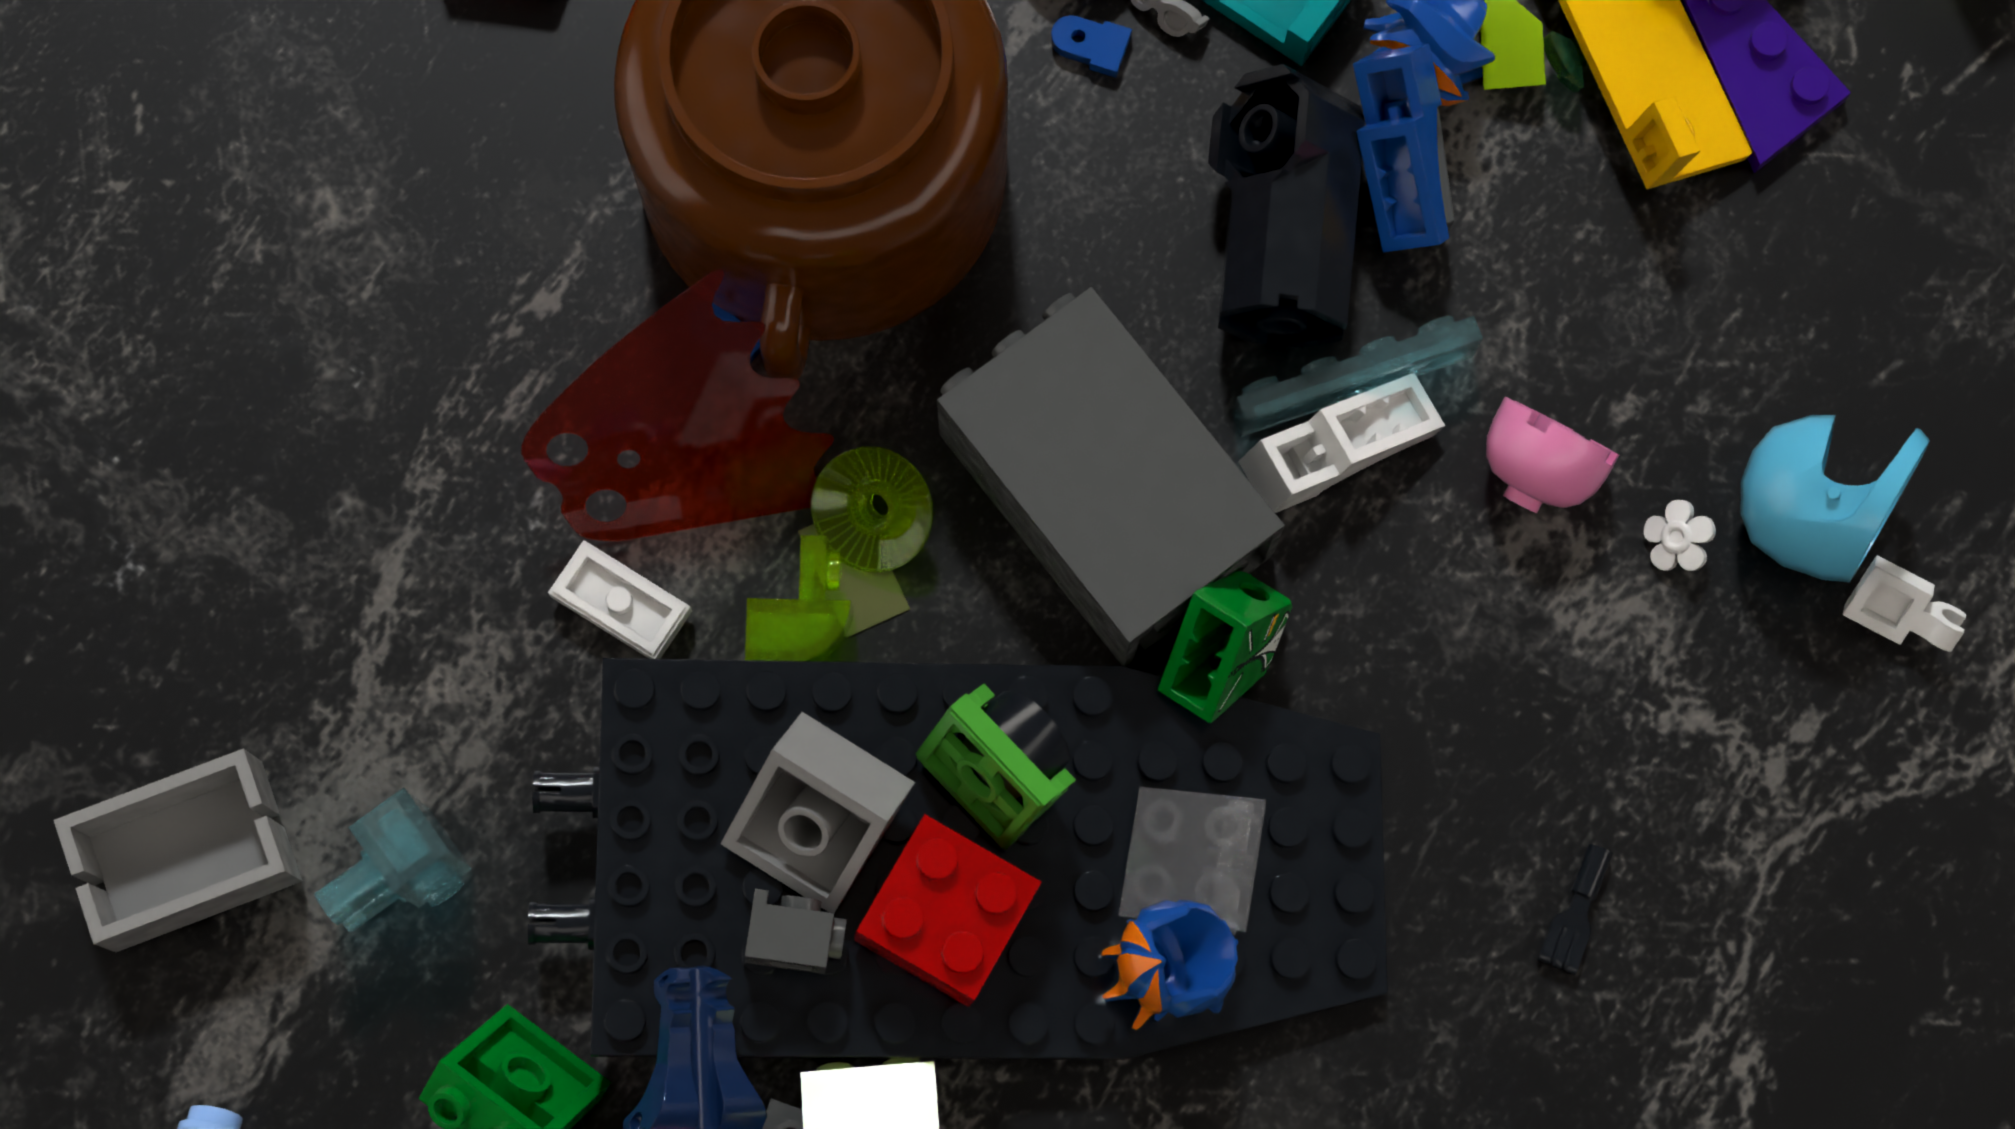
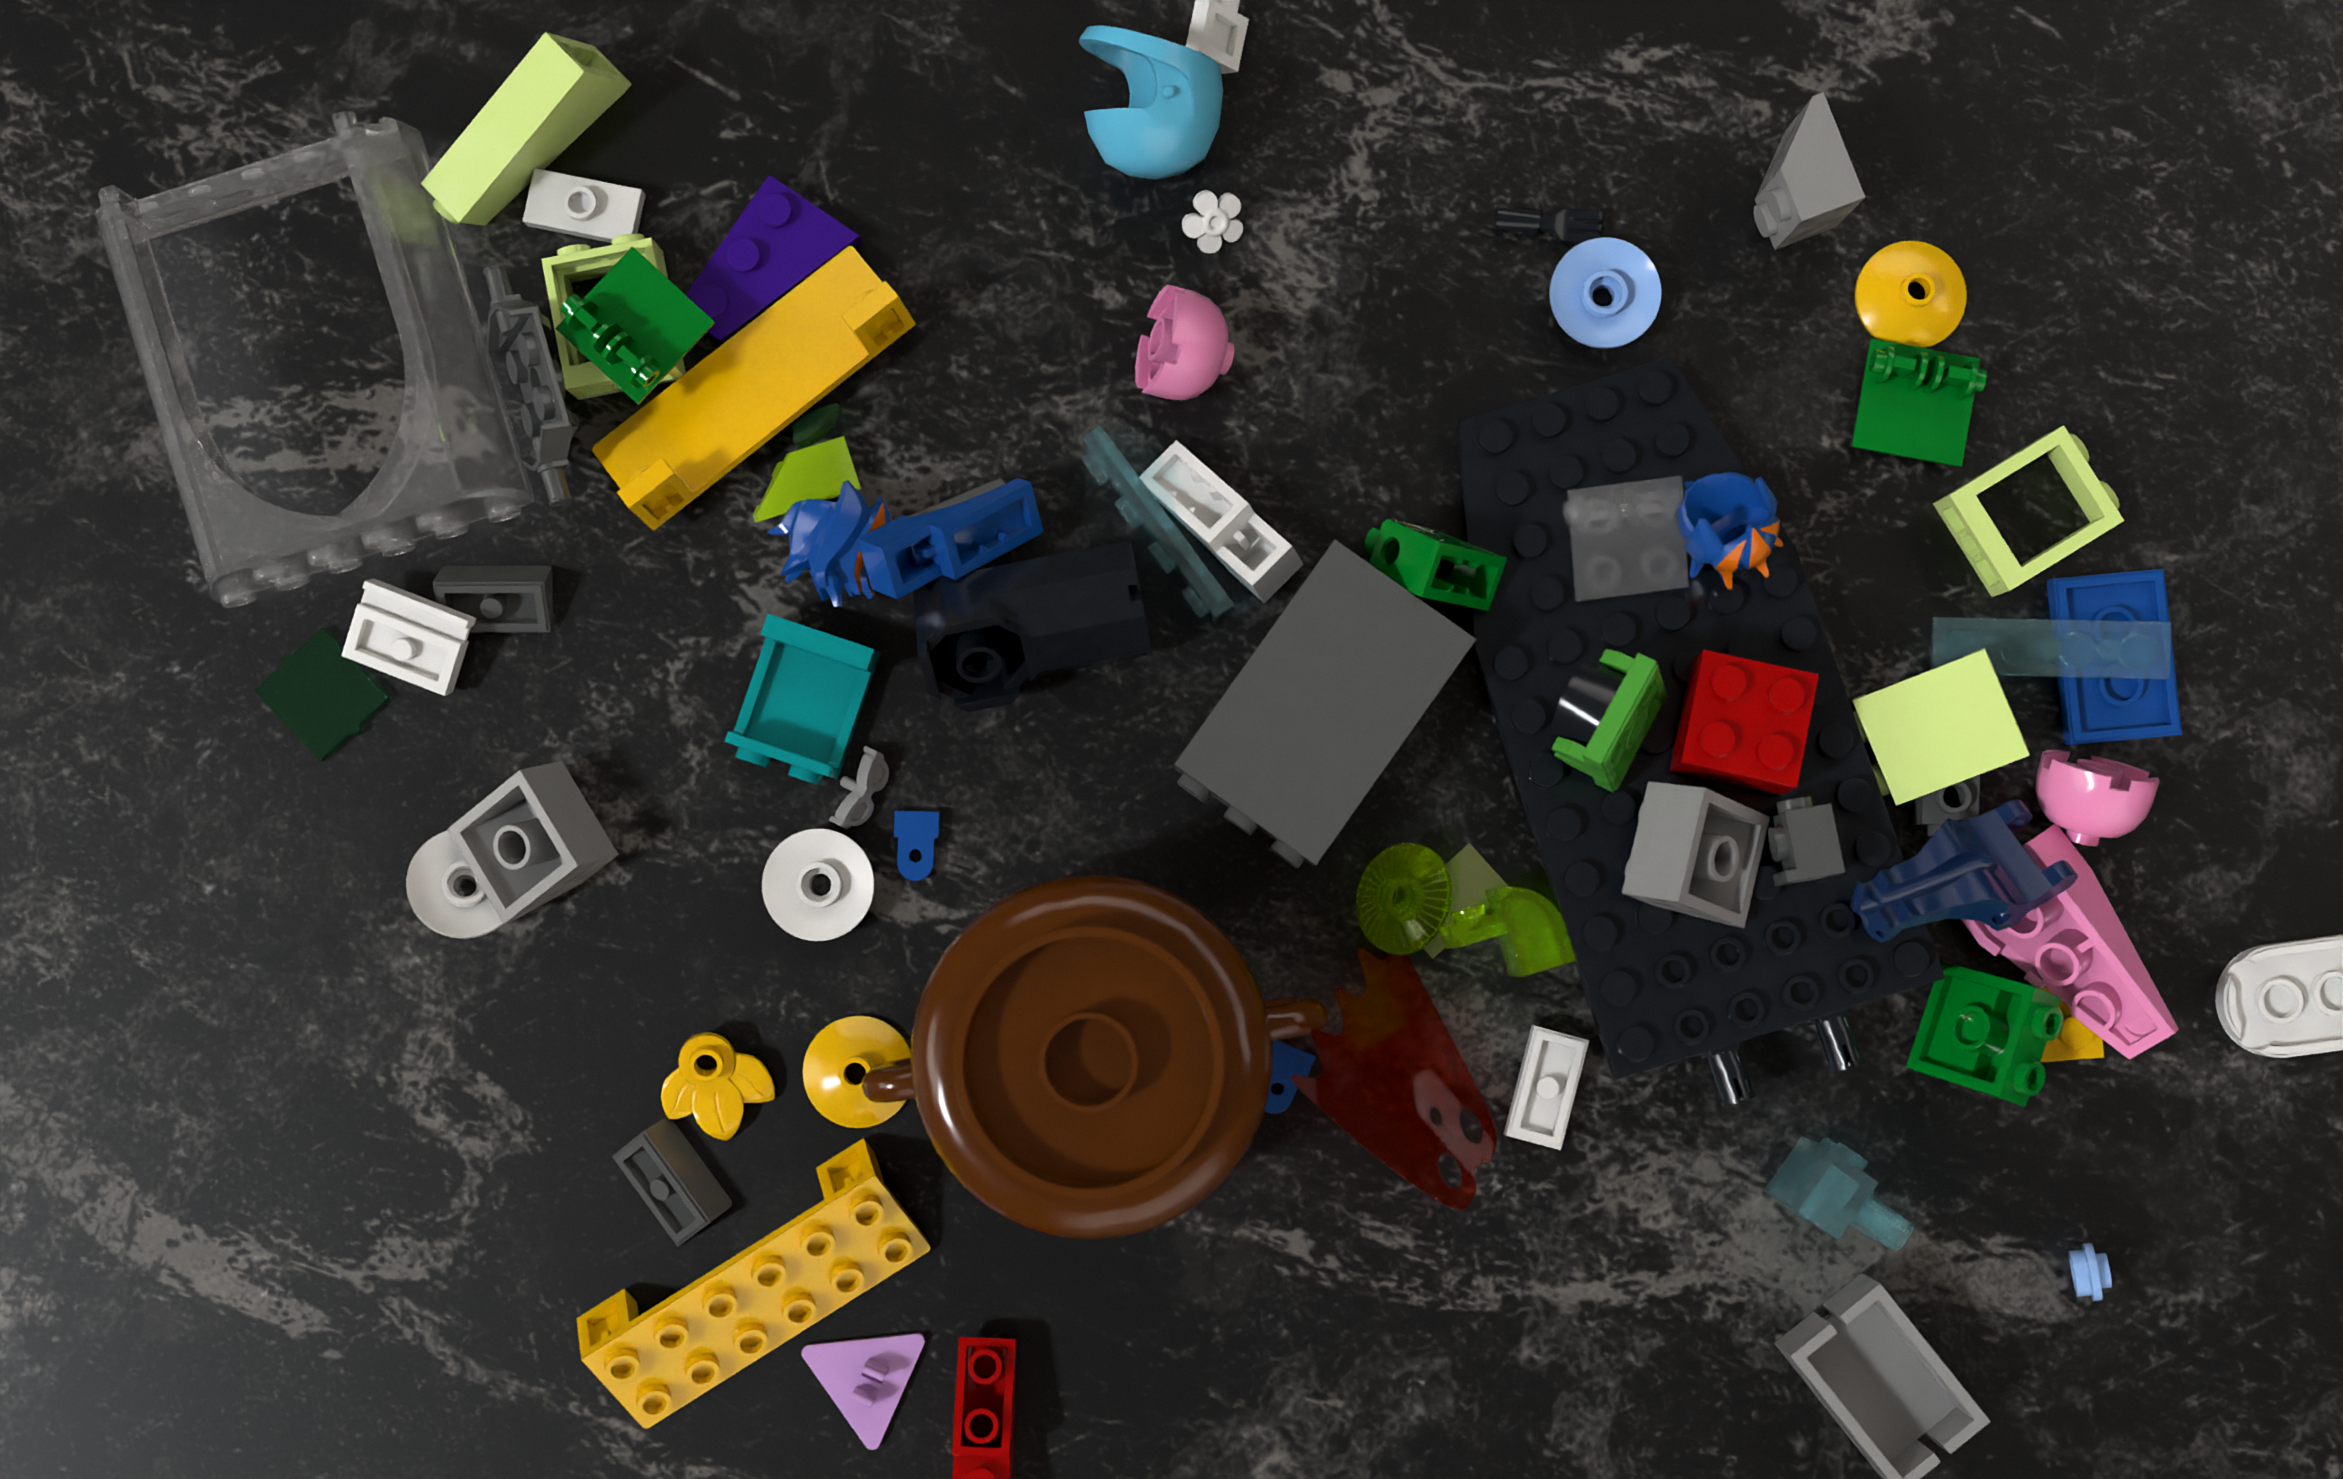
camera: 100 degrees left, 10 degrees up
(1508, 920) = (1620, 271): none -> light blue dish

